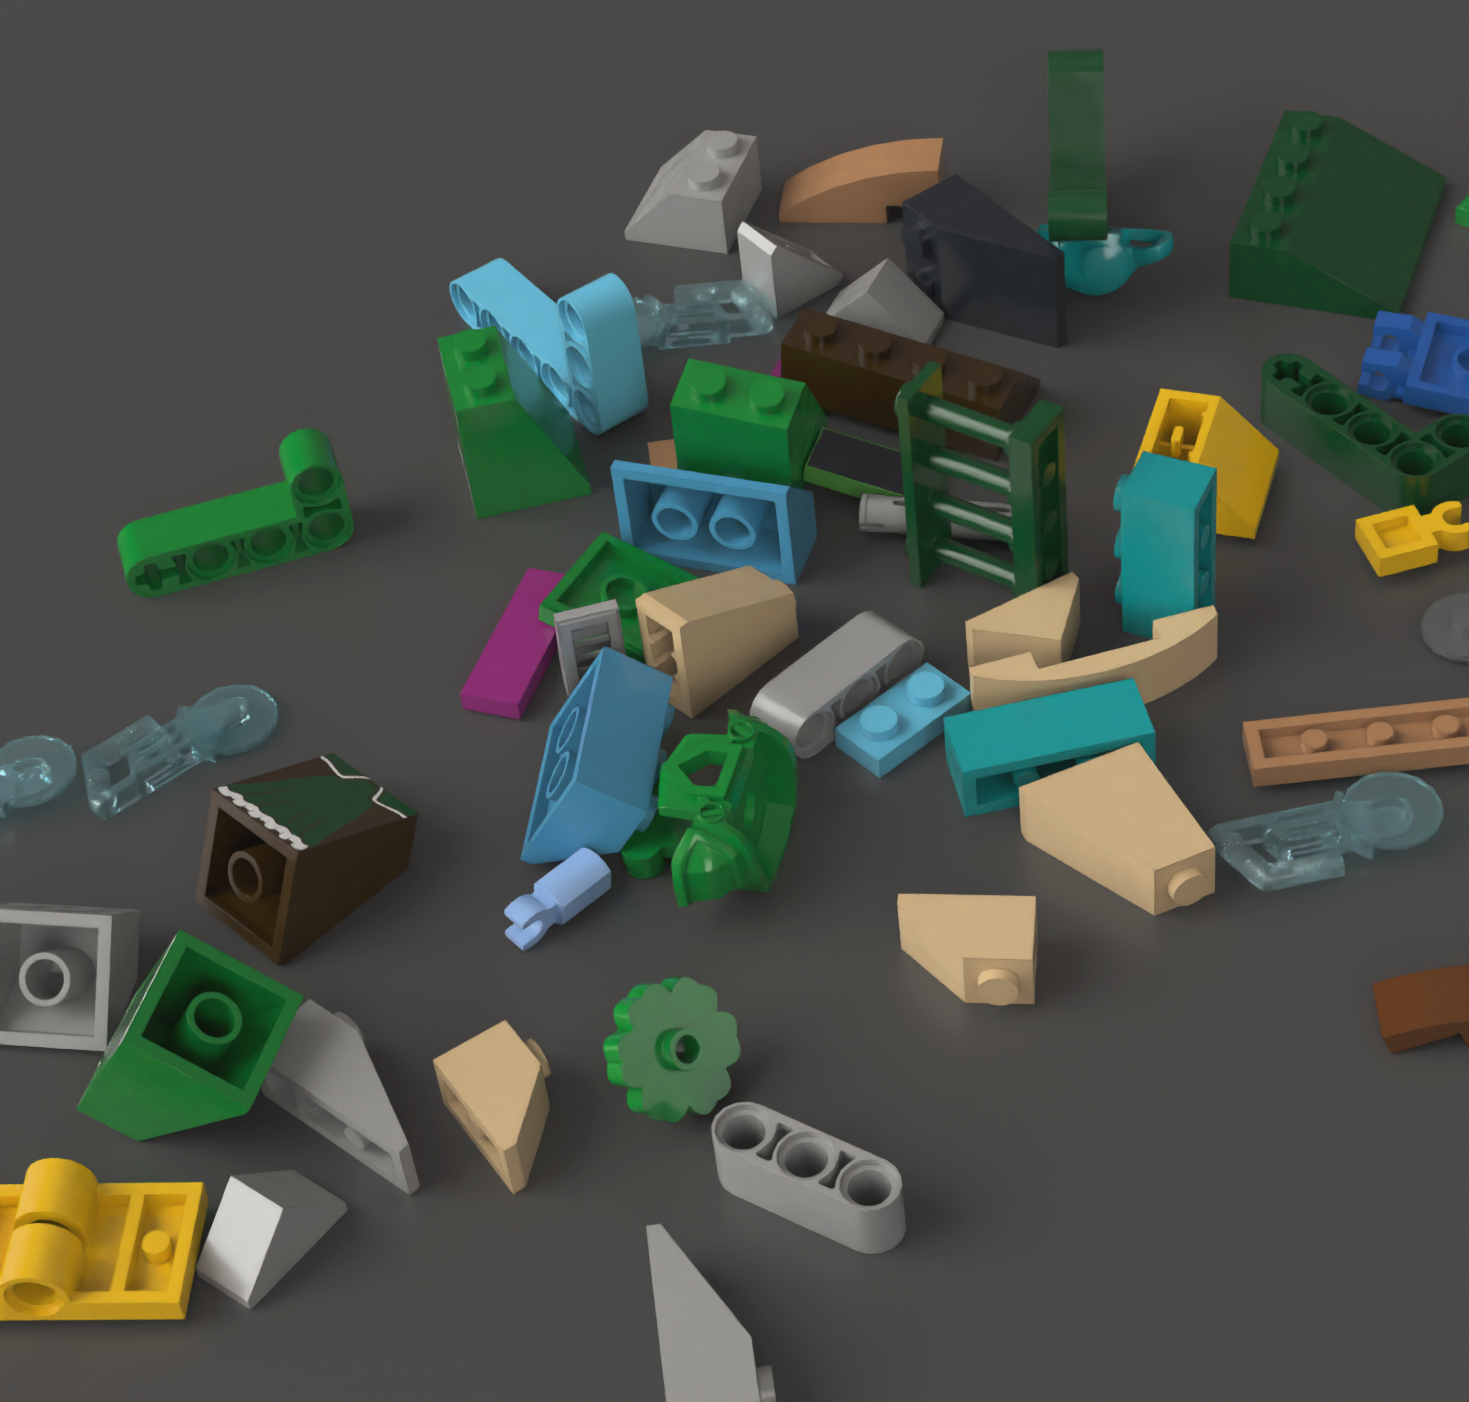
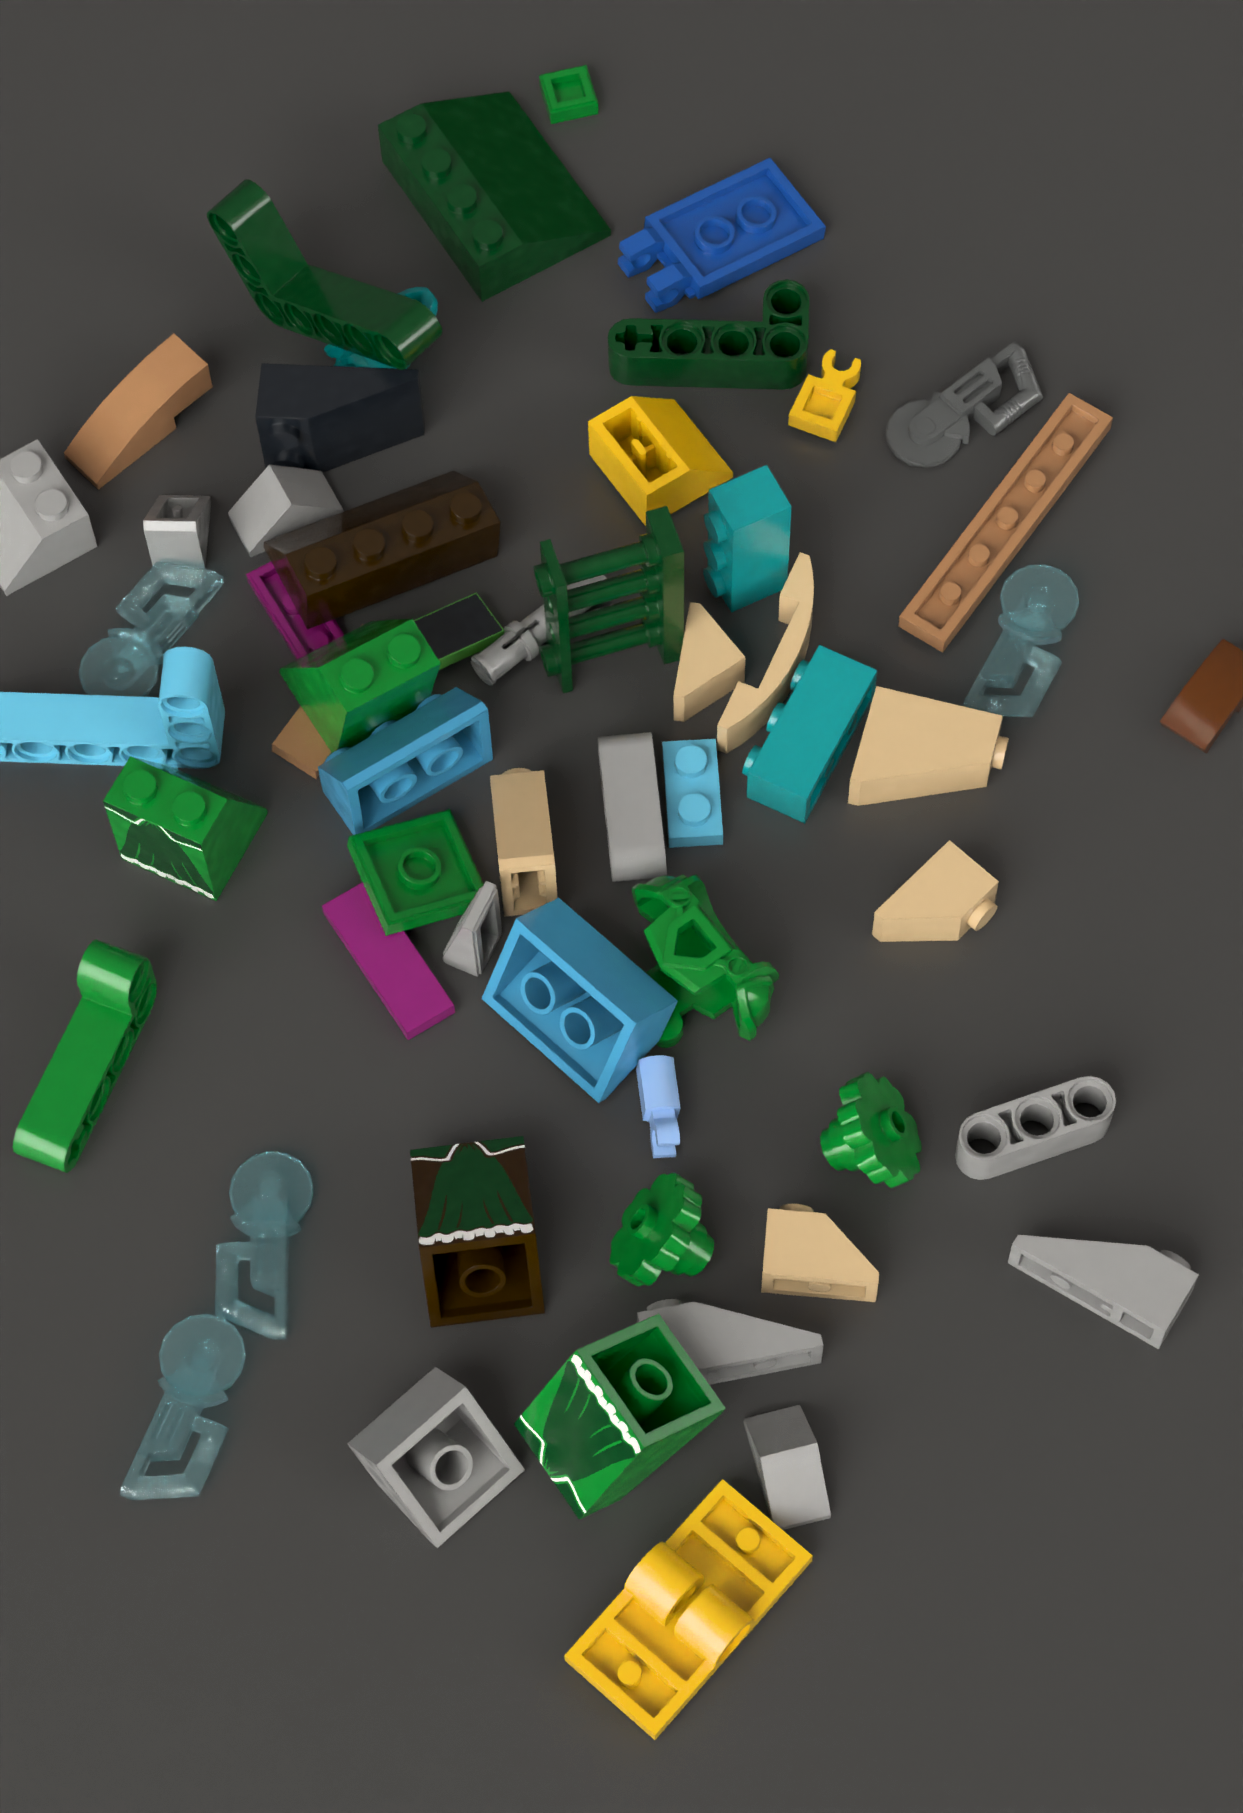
camera: 55 degrees left, 20 degrees up
(414, 974) = (662, 1233): none -> green plant

